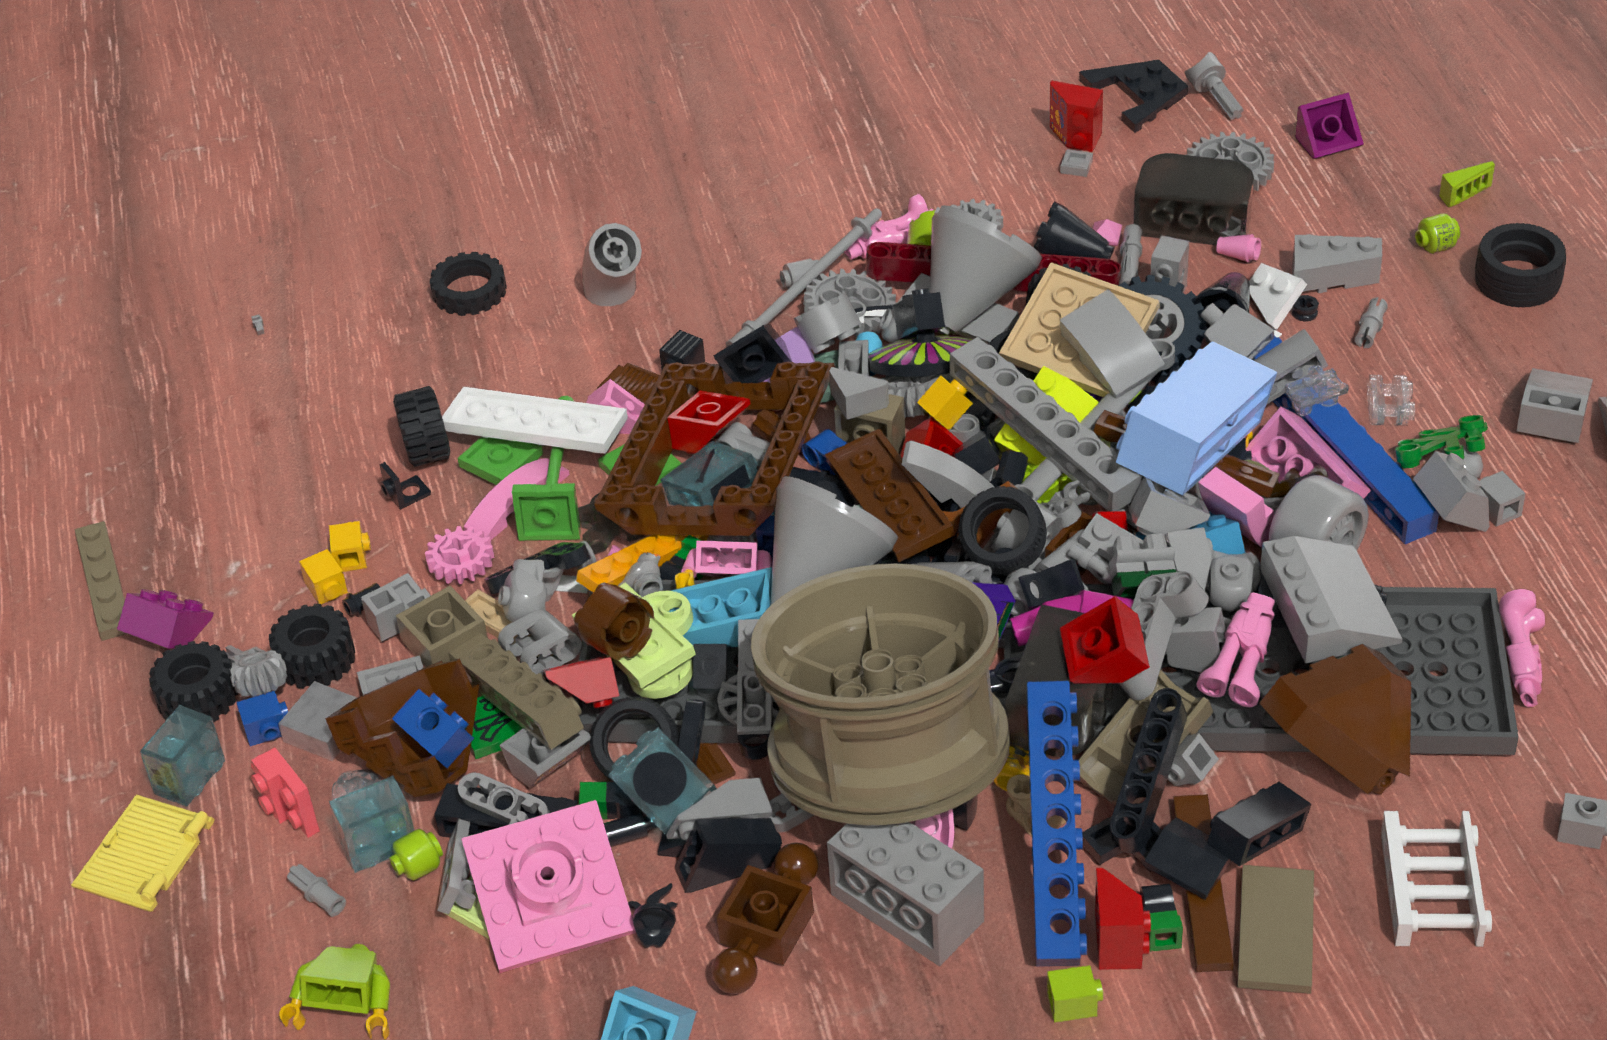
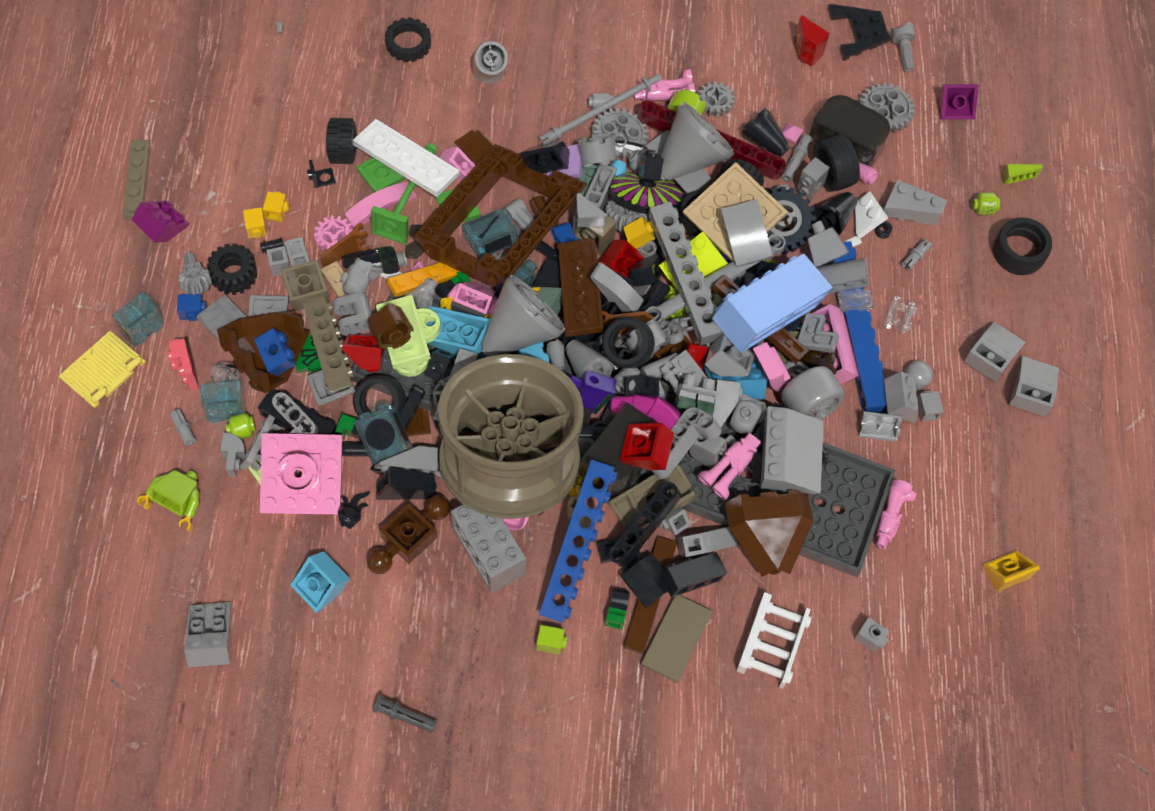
camera: 10 degrees right, 20 degrees up
(193, 678) = (154, 260): black tyre -> none
(417, 894) = (232, 450): none -> light grey brick
(487, 558) = (345, 246): none -> dark orange flag
(682, 349) = (509, 136): black brick -> none
(703, 419) = (501, 191): red slope -> none
(1076, 163) = (797, 73): light grey tile -> none
(1120, 924) = (590, 611): red slope -> none
(1210, 226) = (842, 159): none -> black tyre
(1250, 774) = (706, 542): none -> light grey slope
(1283, 457) = (814, 338): none -> light grey plate
(1438, 545) = (879, 426): none -> light grey hinge
(1470, 427) = (936, 353): green plant -> none

